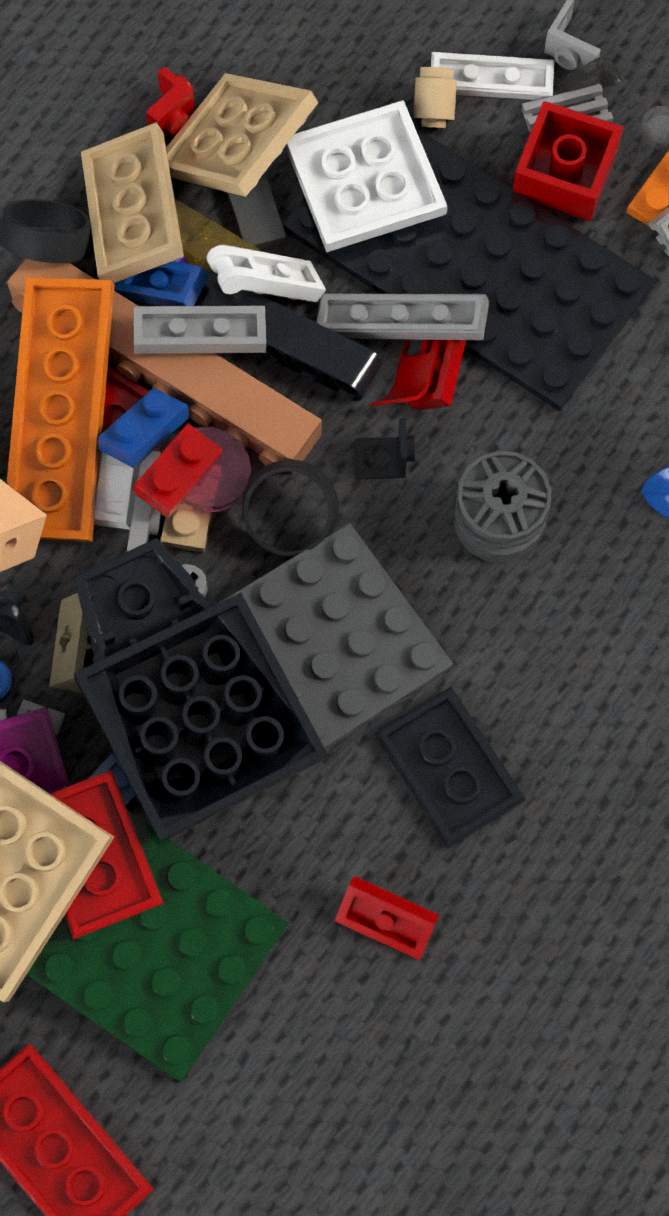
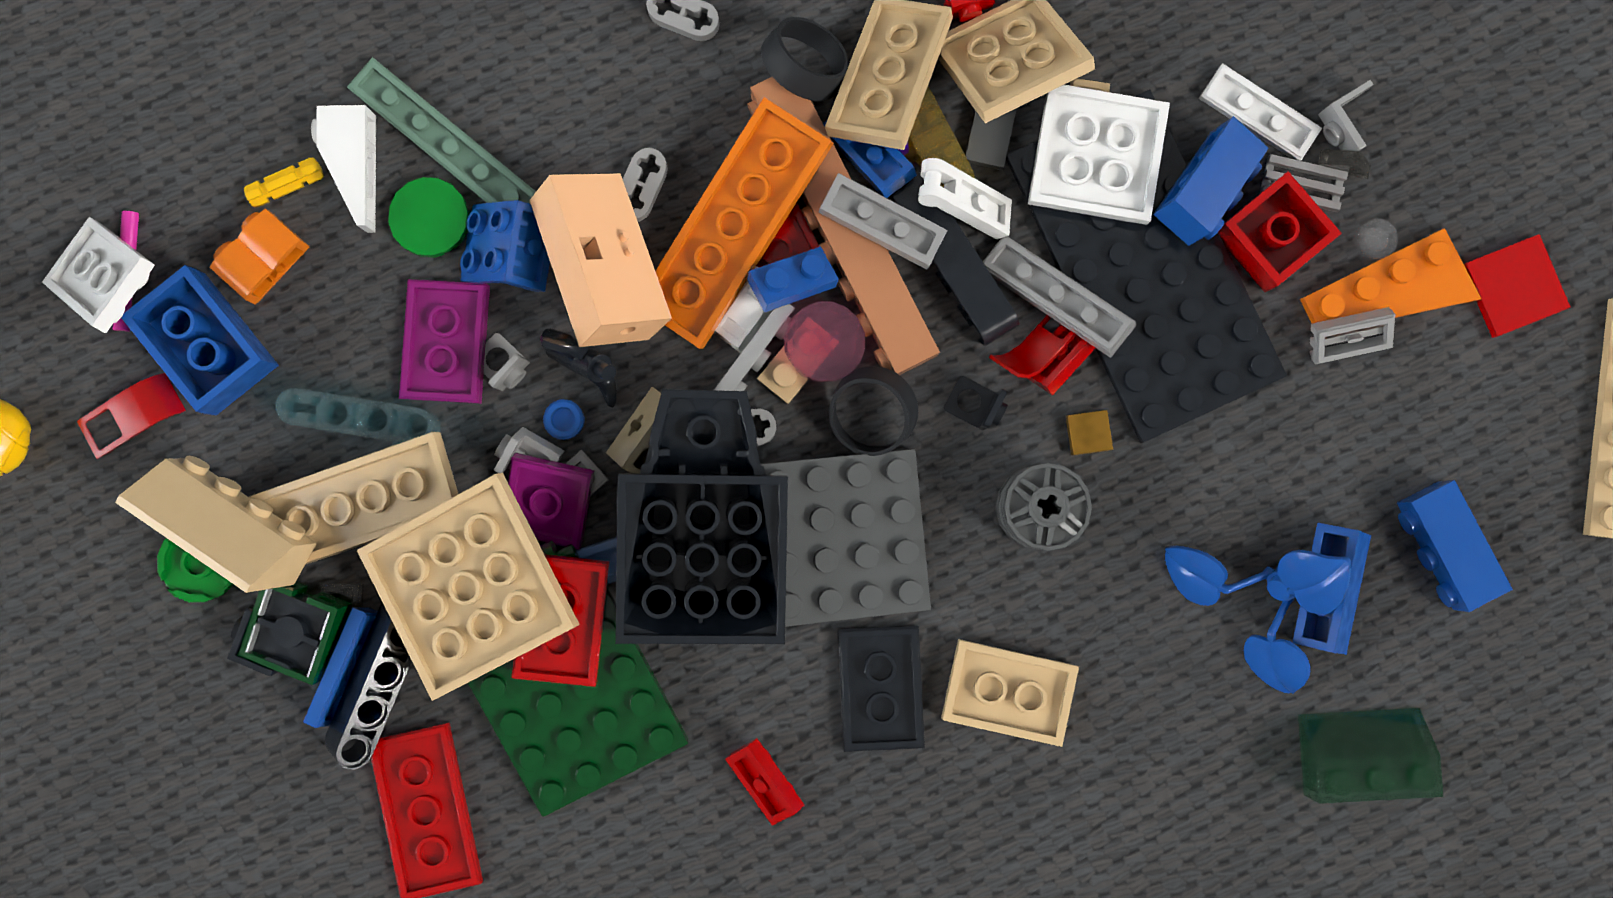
camera: 25 degrees right, 15 degrees up
(177, 470) = (798, 335): red plate -> none
(435, 96) = (1200, 109): tan brick -> none
(483, 148) = (1212, 182): none -> blue brick
(506, 425) = (1089, 432): none -> pearl gold tile
(575, 700) = (1010, 692): none -> tan plate

